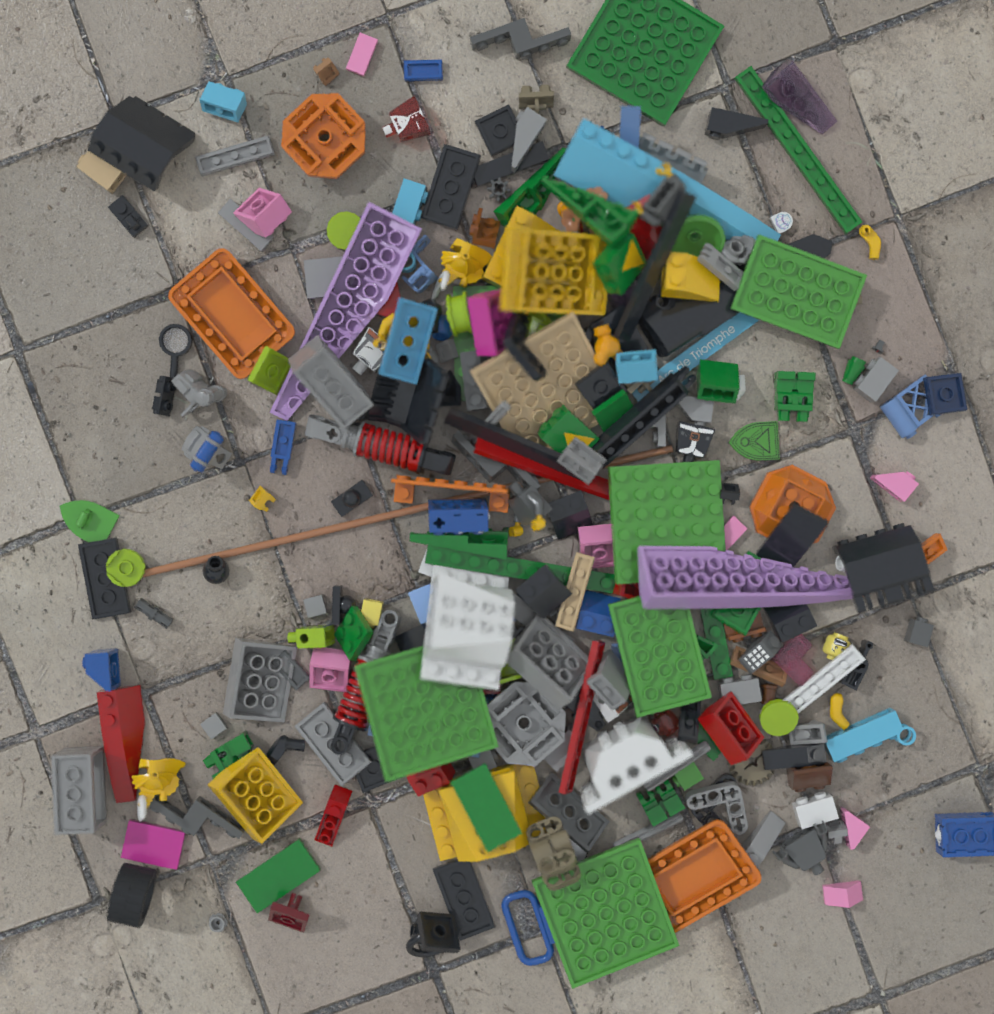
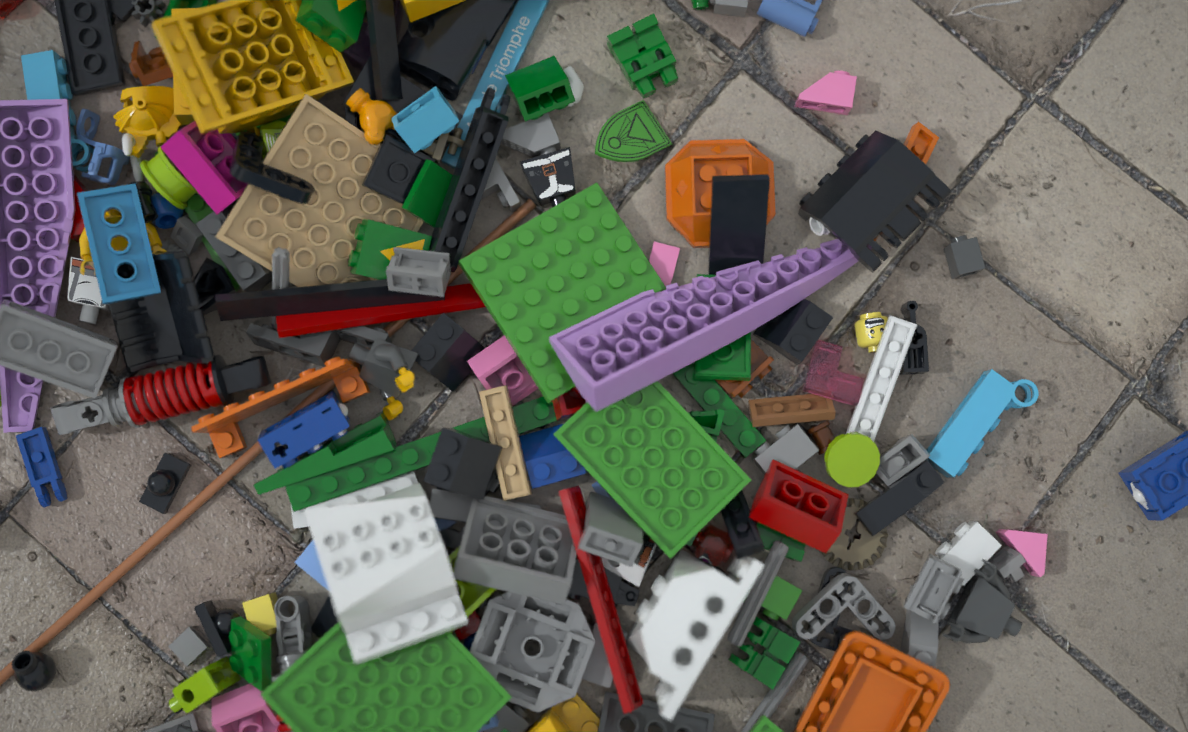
camera: 25 degrees left, 5 degrees down
(260, 497) = (46, 547): yellow tile -> none
(730, 491) = (631, 215): black tile -> none
(760, 651) = (781, 389): dark grey slope -> none
(782, 821) = (933, 588): none -> light grey hinge
(809, 776) = (934, 512): reddish brown slope -> none
(836, 714) = (919, 412): yellow arm -> none
(843, 894) = (1064, 640): bright pink slope -> none

